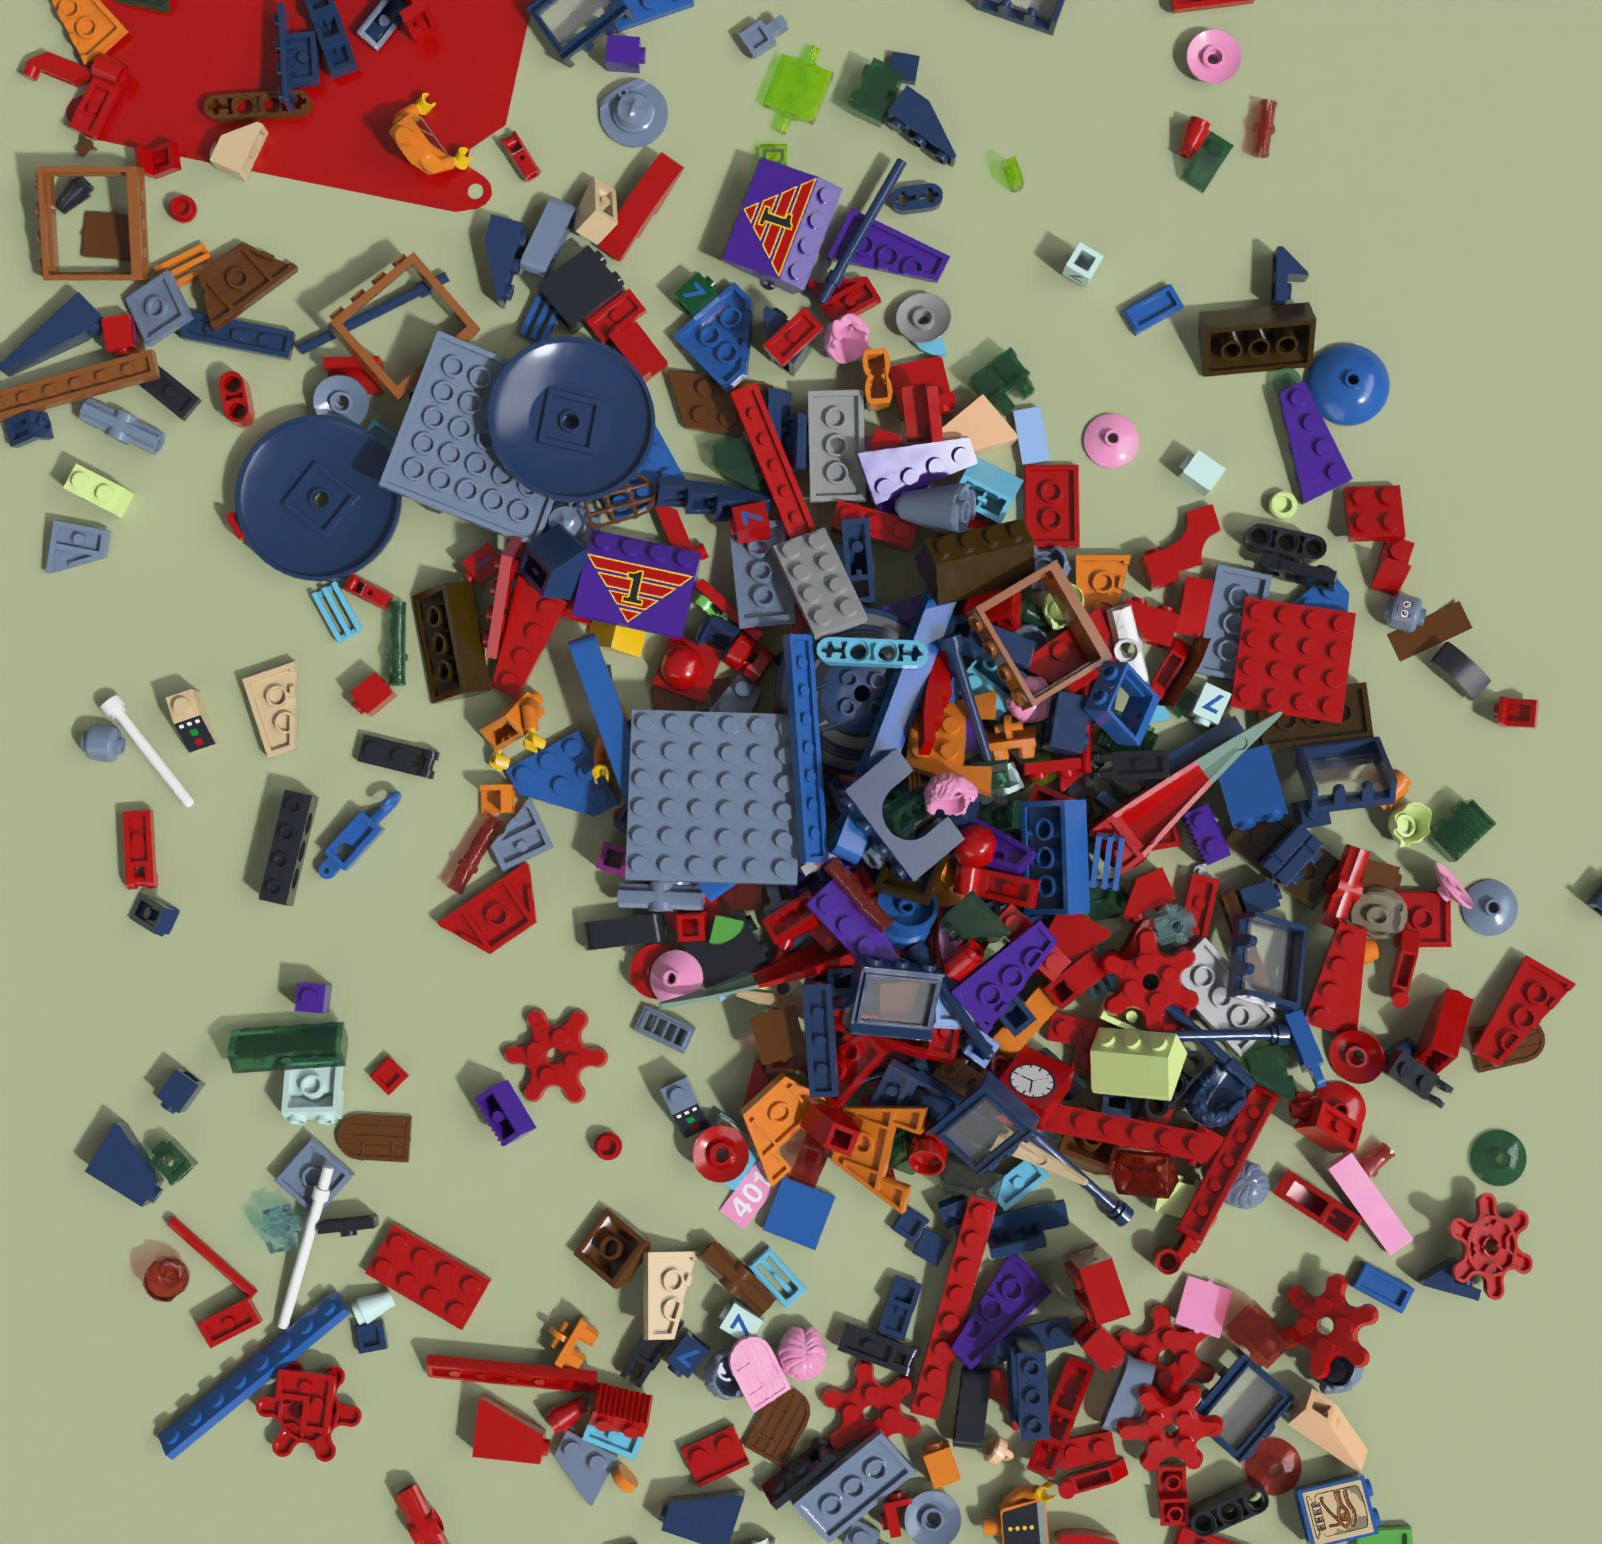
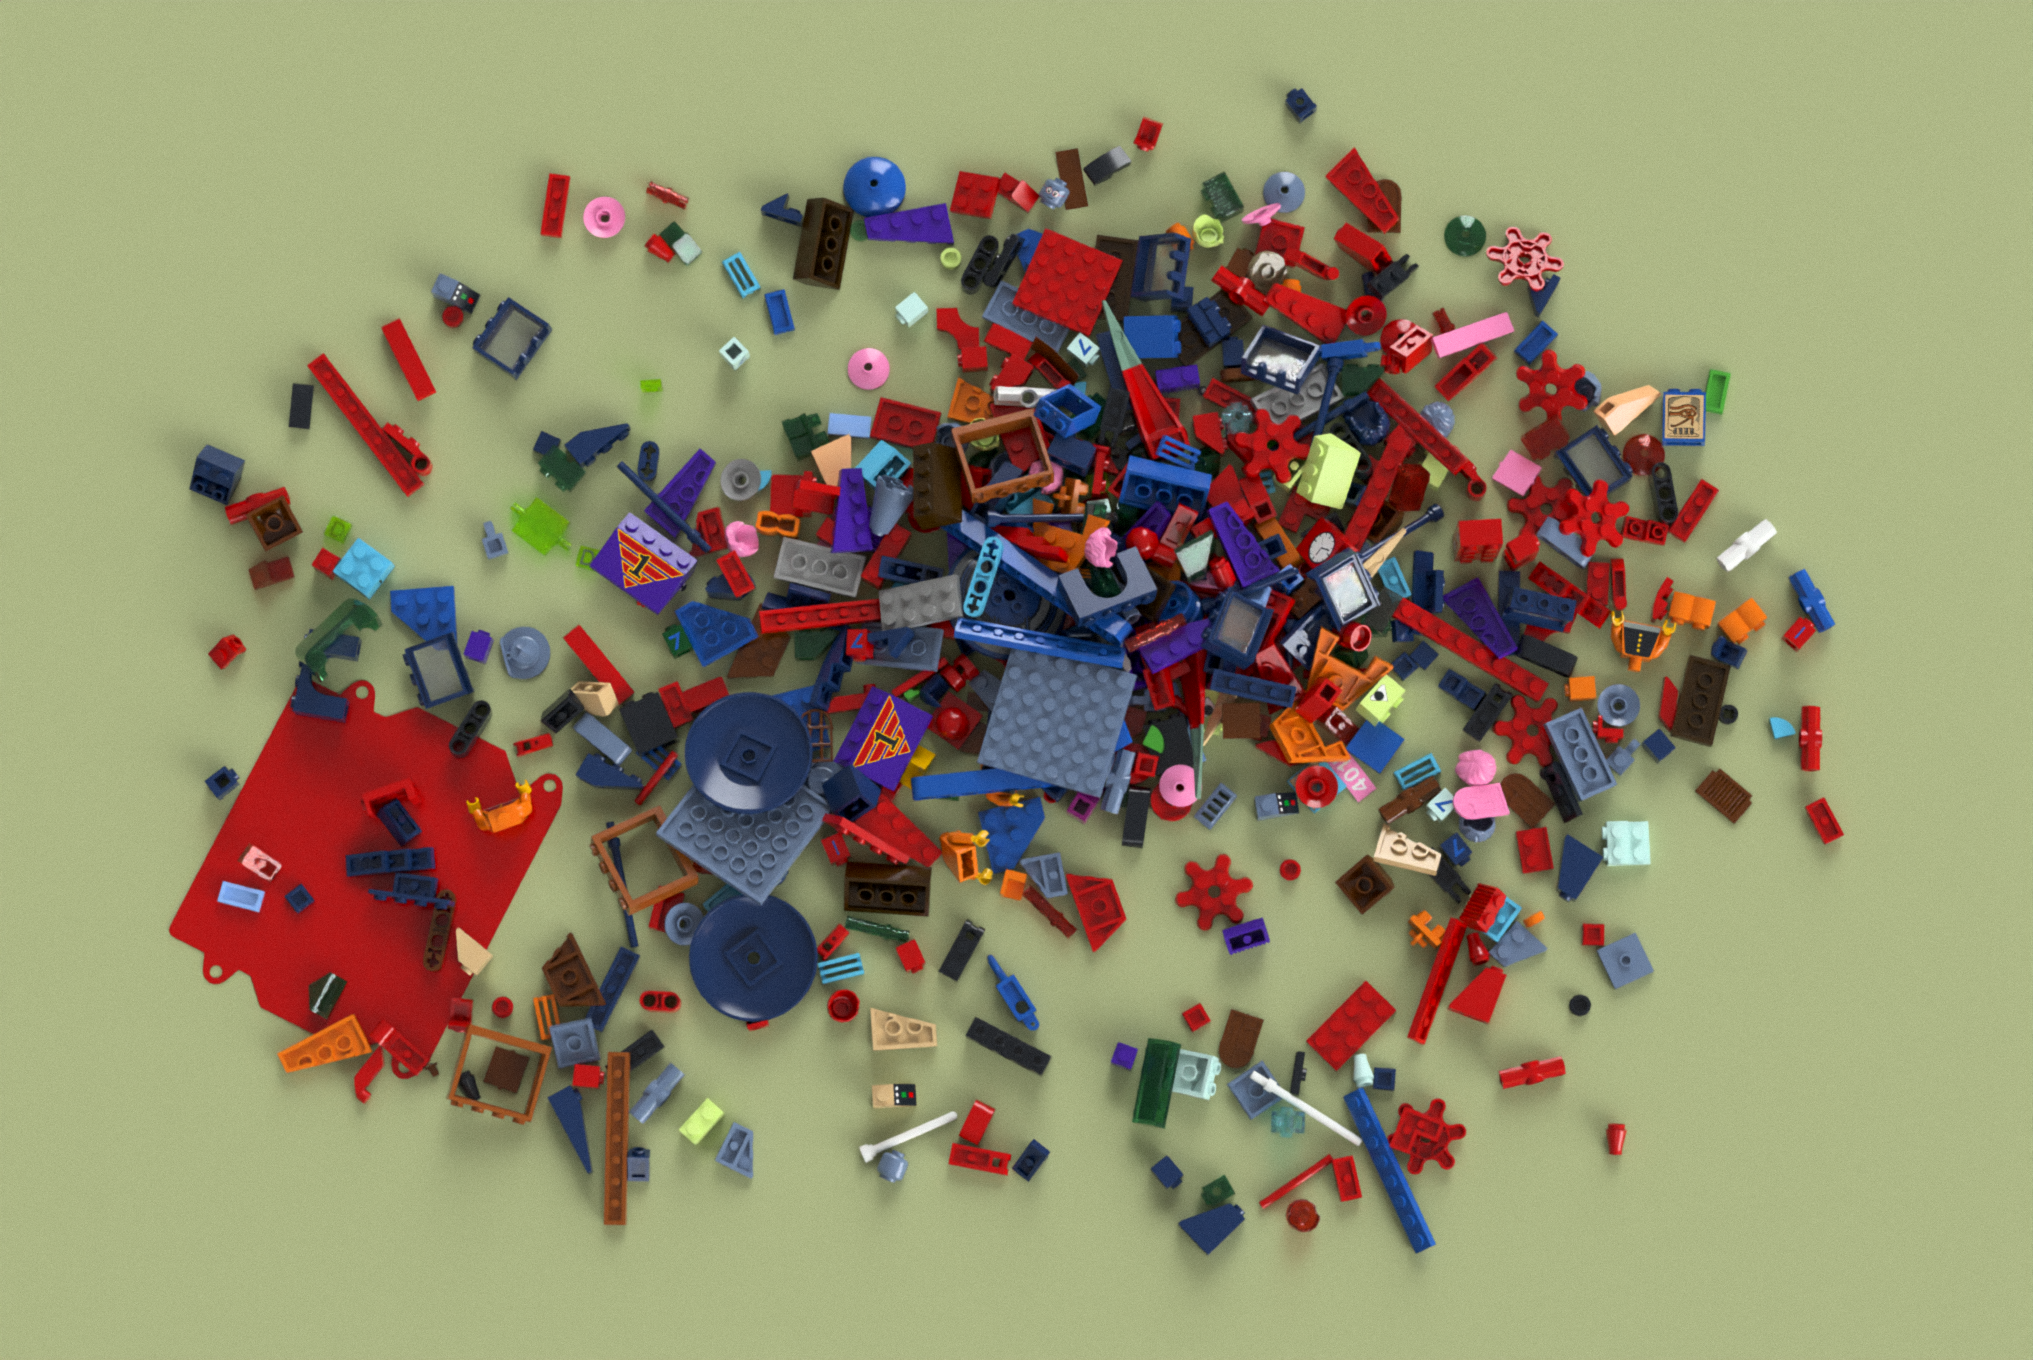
camera: 70 degrees left, 5 degrees down
(184, 833) = (977, 1122): none -> red beam
(287, 626) = (843, 1005): none -> red hair
(508, 62) = (470, 719): none -> black beam
(516, 317) = (656, 778): none -> red bar
(569, 177) = (562, 711): none -> black slope
(765, 564) = (895, 639): none -> dark blue slope
(855, 1207) = (1380, 700): none -> yellowish green brick
(996, 1450) = (1581, 646): light nougat tile -> none
(1171, 264) = (749, 289): none -> medium azure tile

